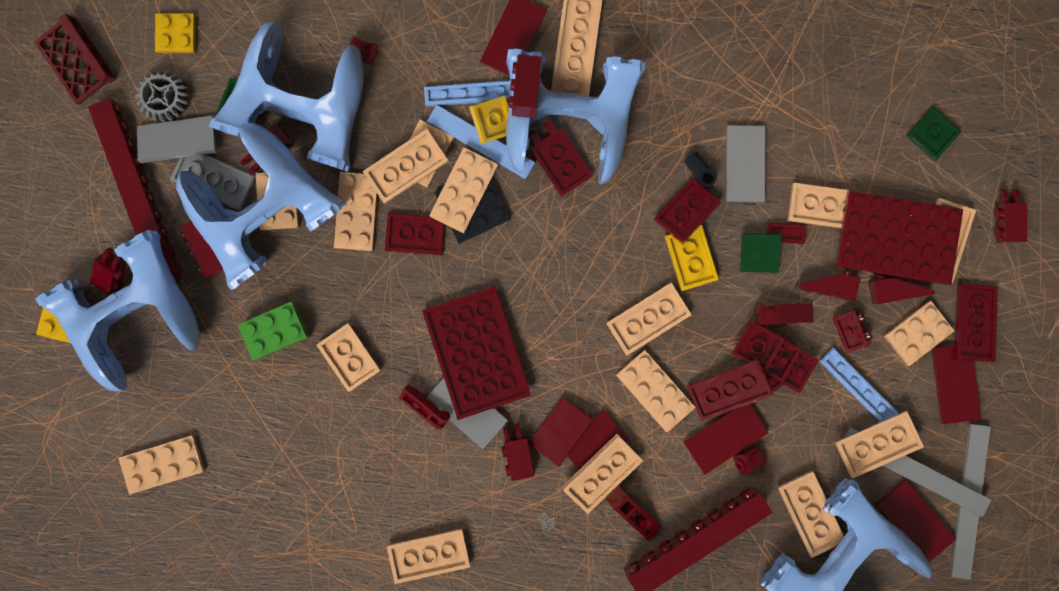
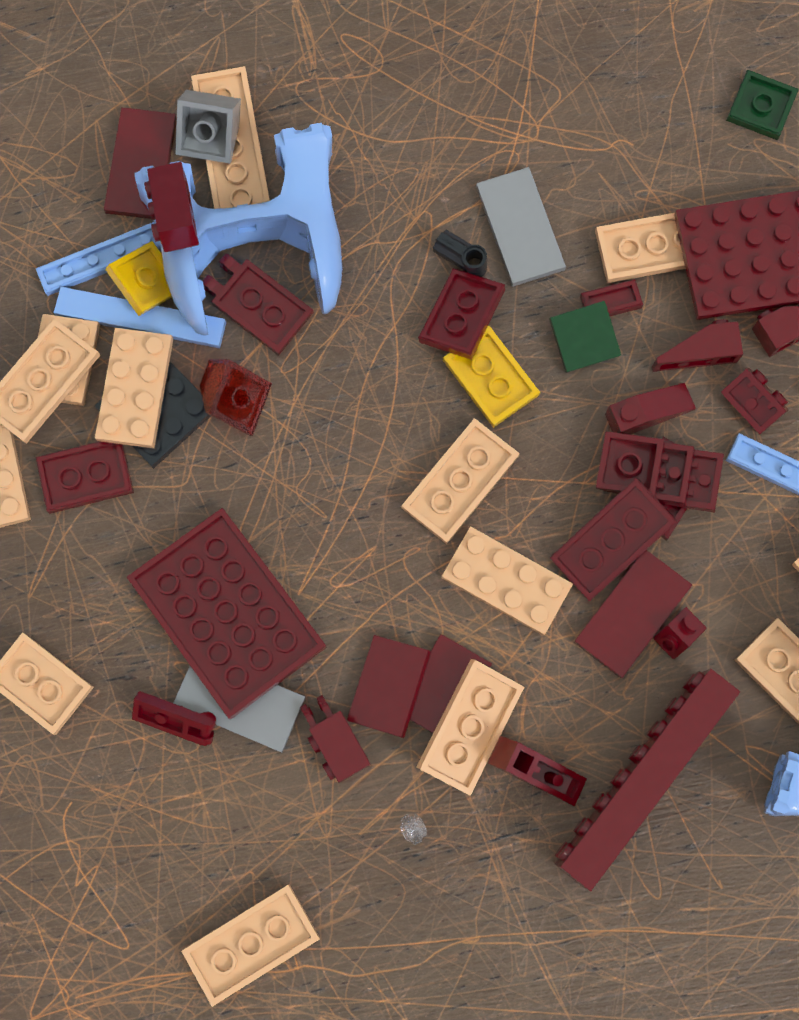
camera: 15 degrees left, 10 degrees down
(524, 215) = (233, 394): none -> clear red slope
(565, 28) = (207, 125): none -> light grey slope

